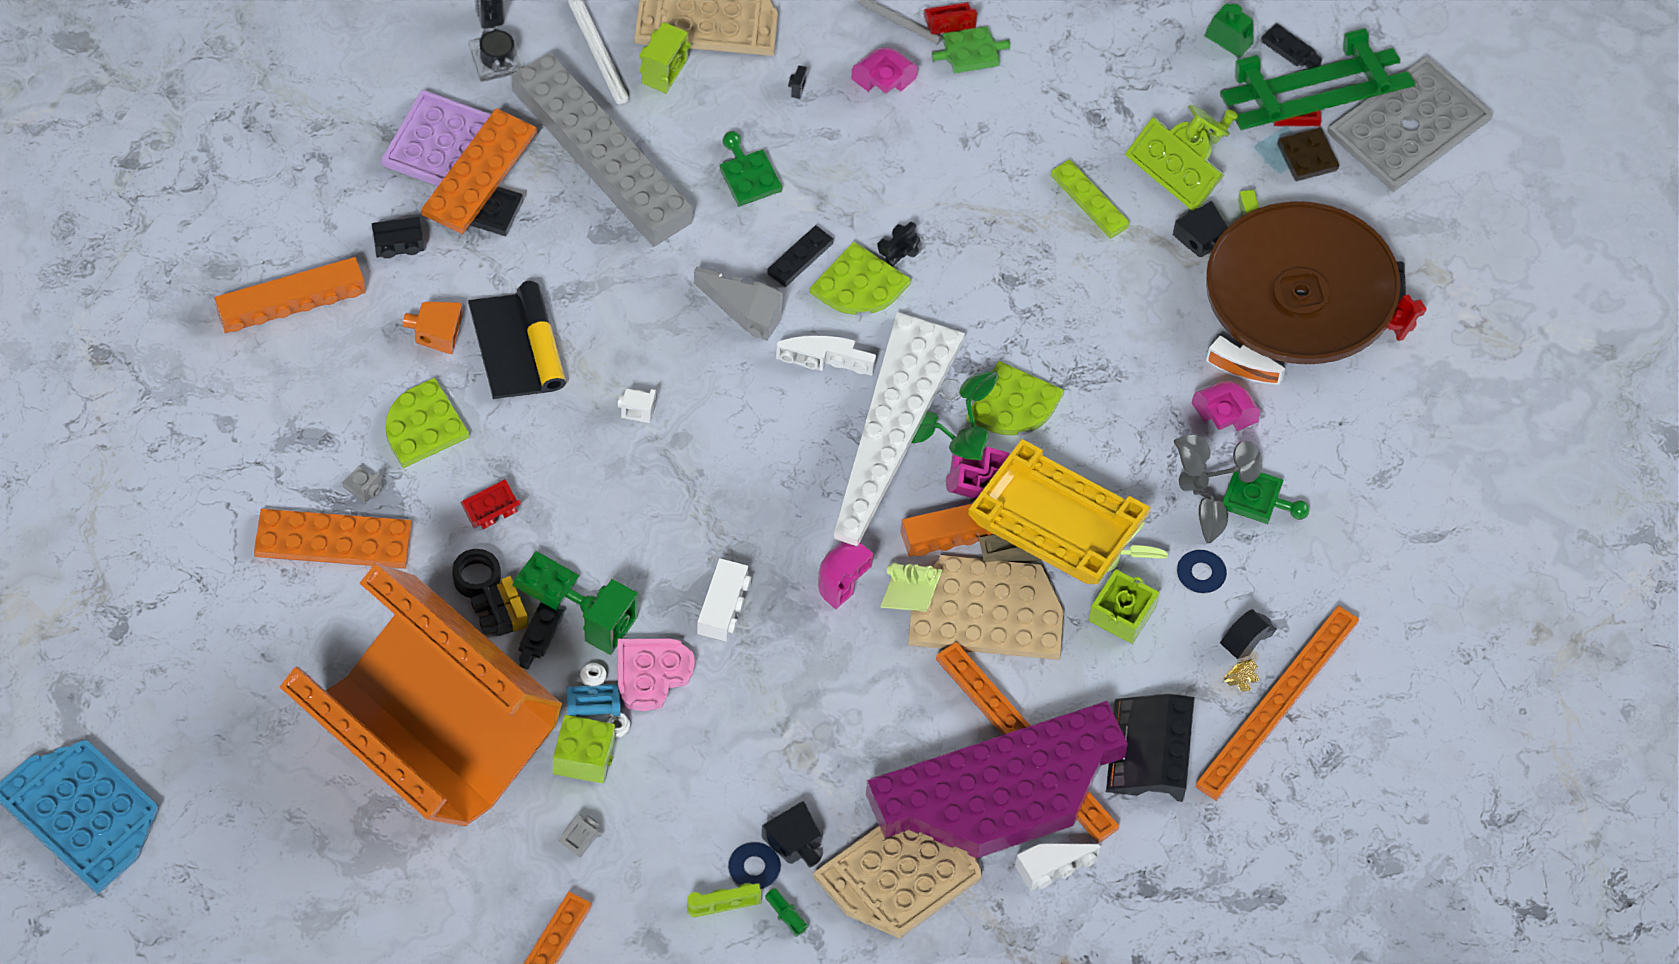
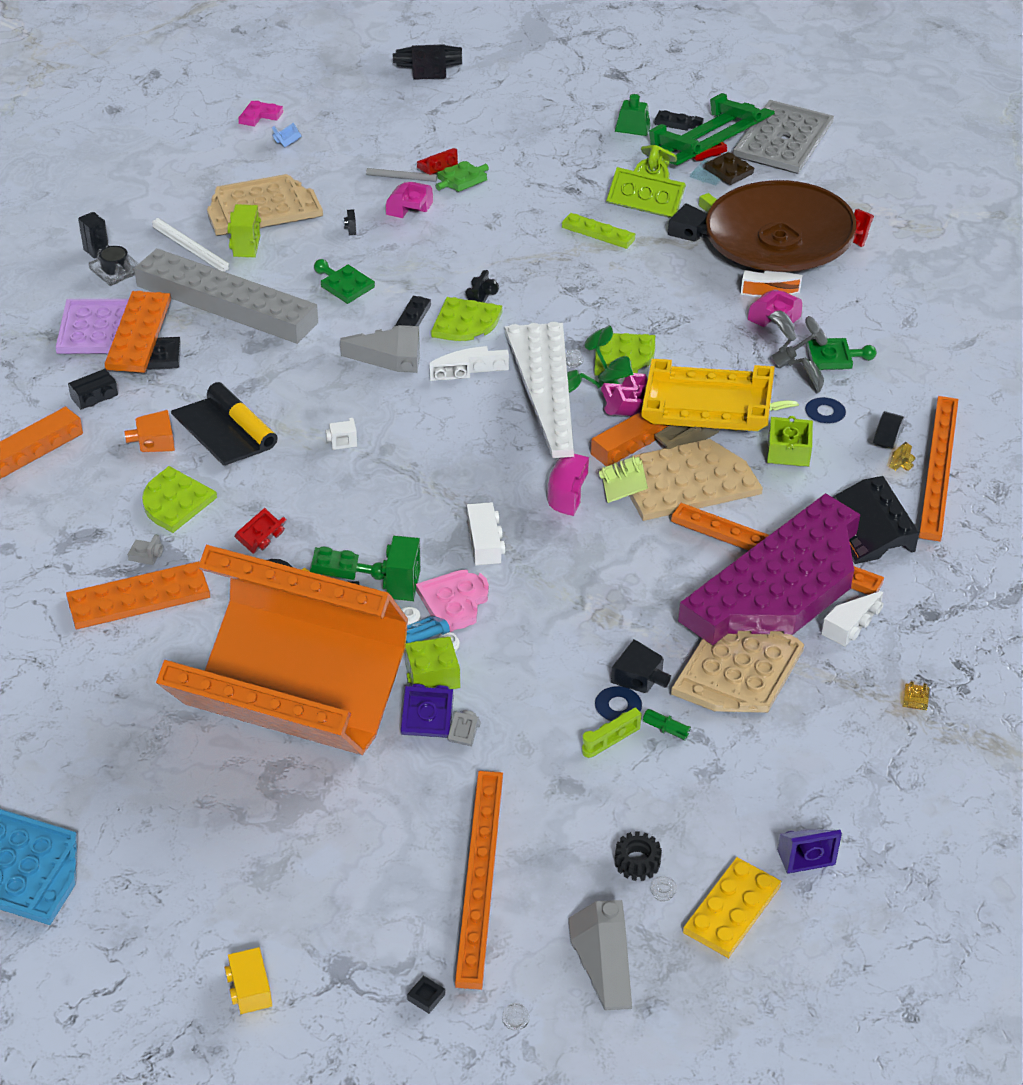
camera: 20 degrees left, 15 degrees down
(553, 800) = (427, 711): none -> dark purple plate

